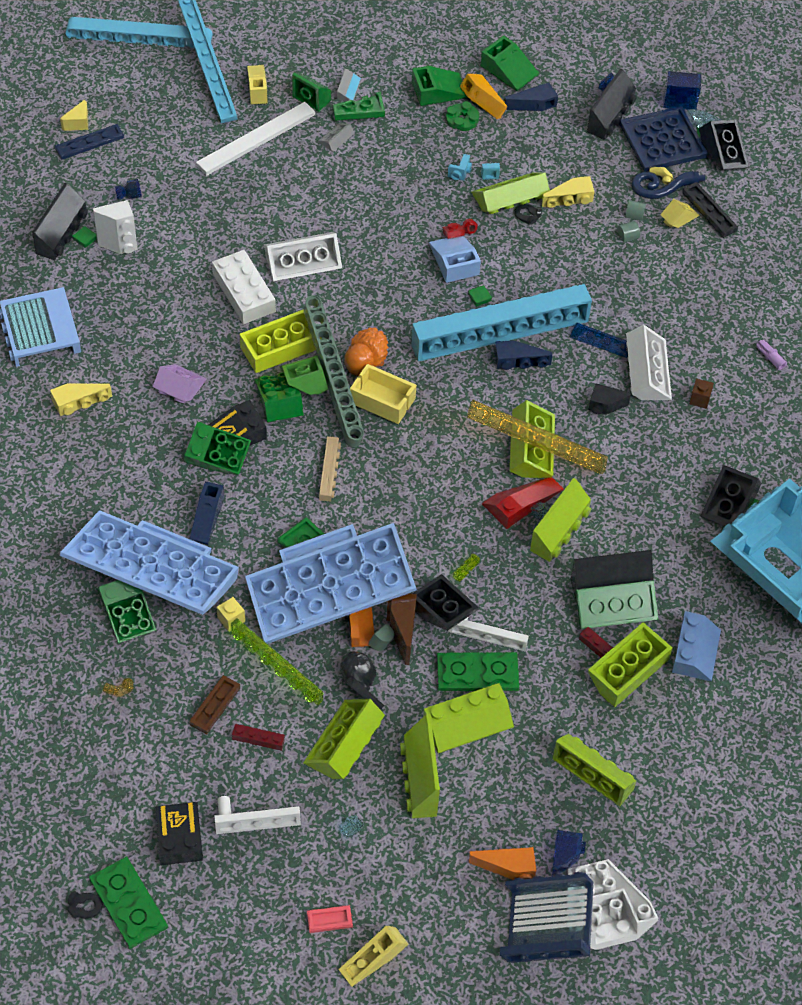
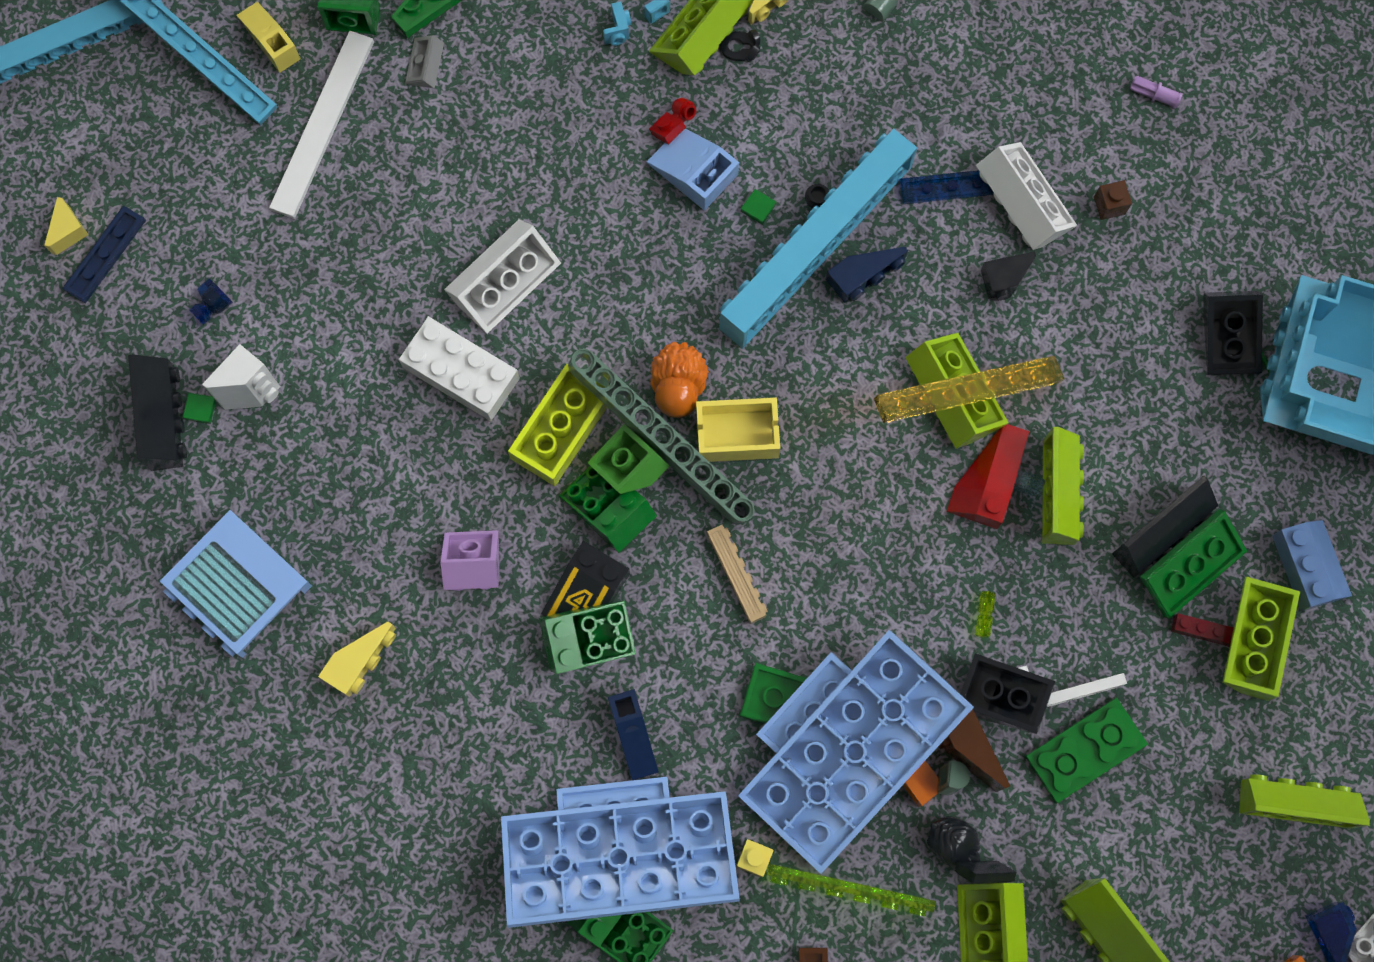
camera: 30 degrees left, 20 degrees up
(469, 717) = (1118, 823): lime slope -> none

